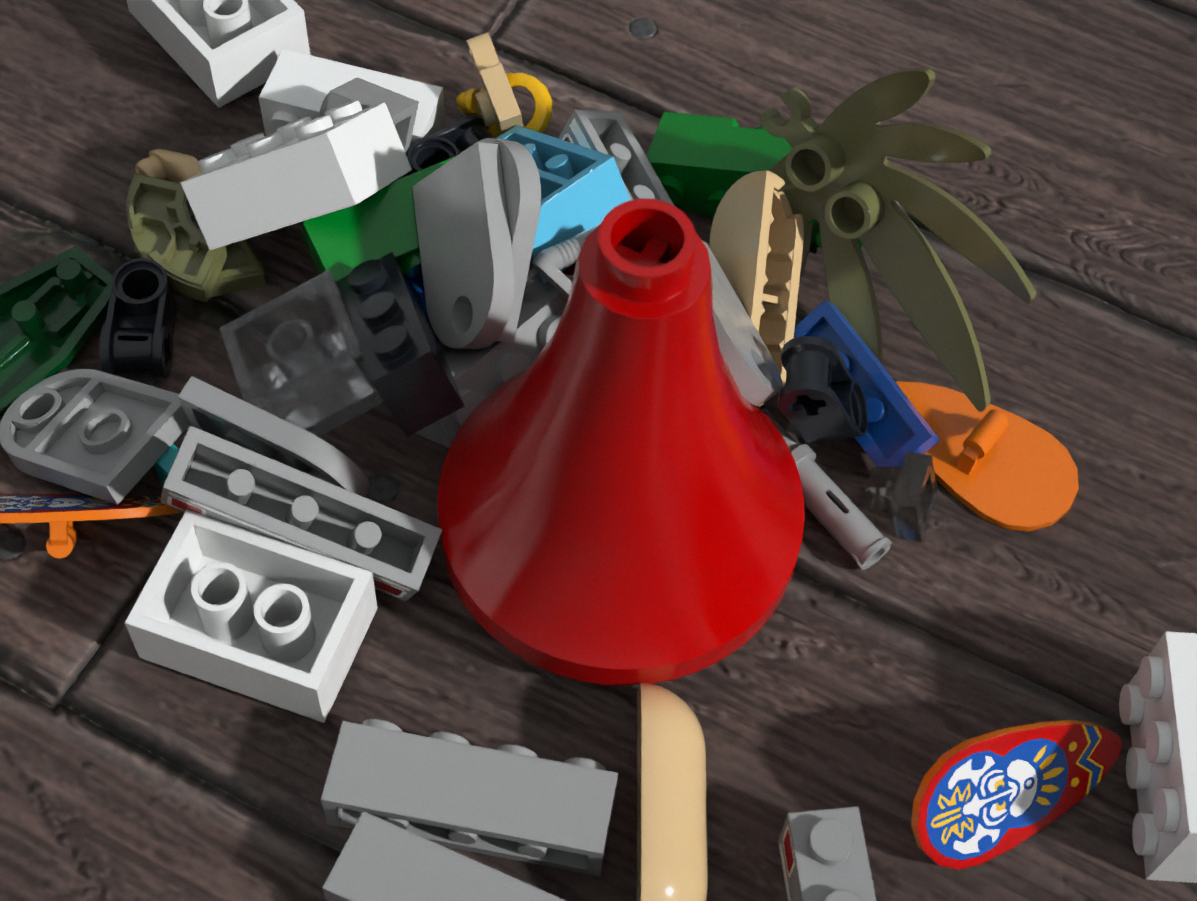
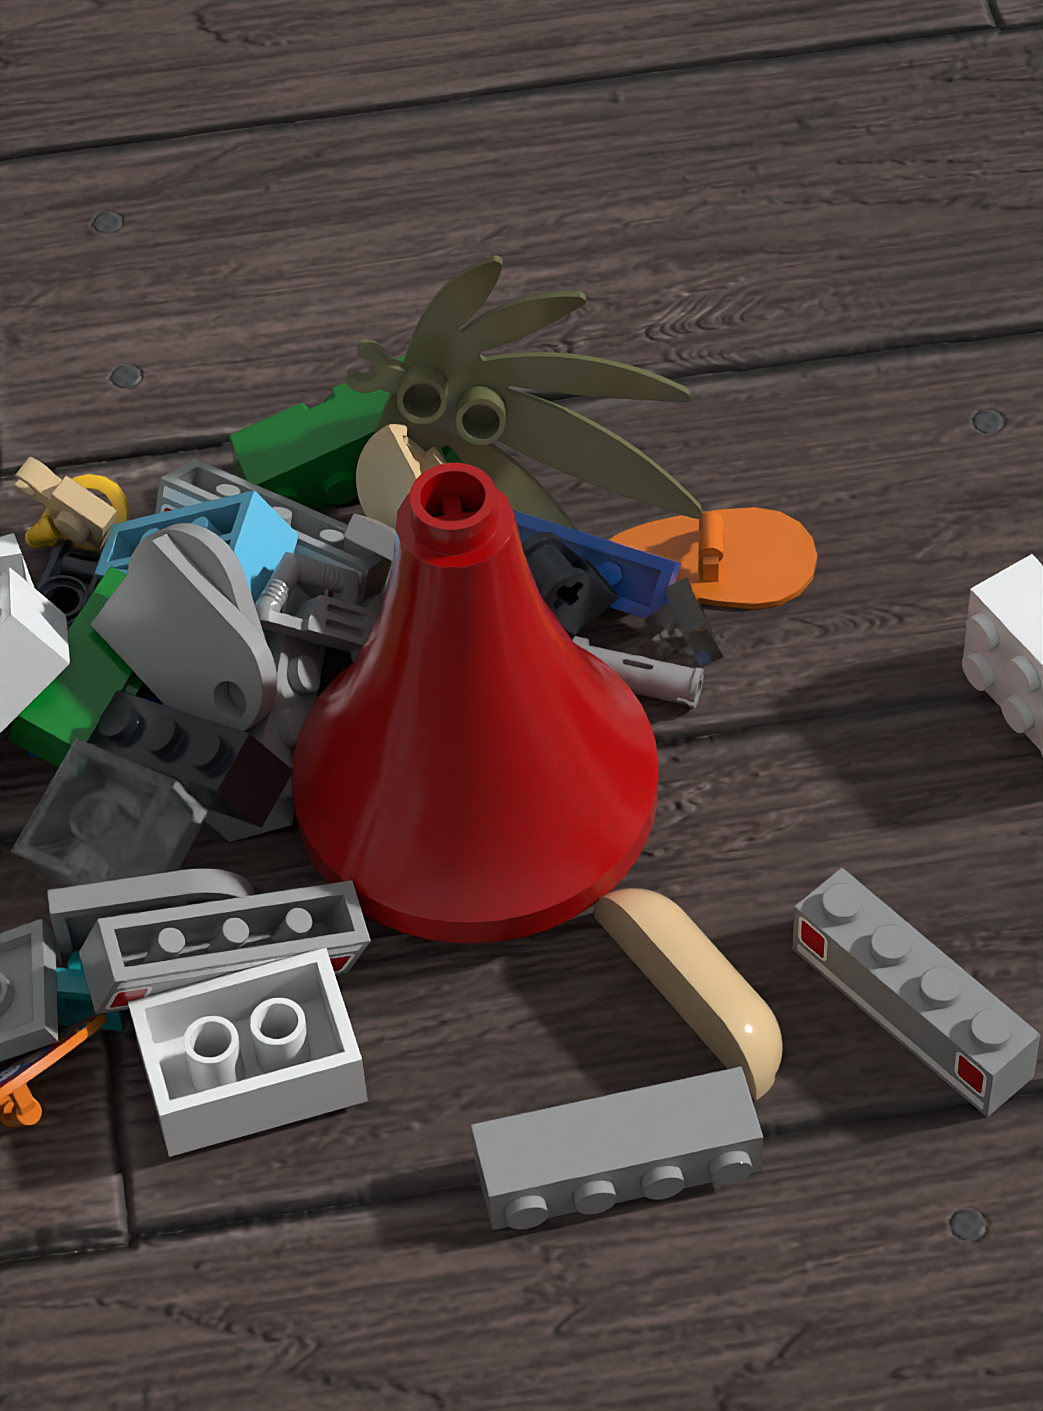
camera: 30 degrees left, 5 degrees down
(473, 795) = (550, 1059): light grey brick -> none
(1007, 788) = (936, 788): shield -> none

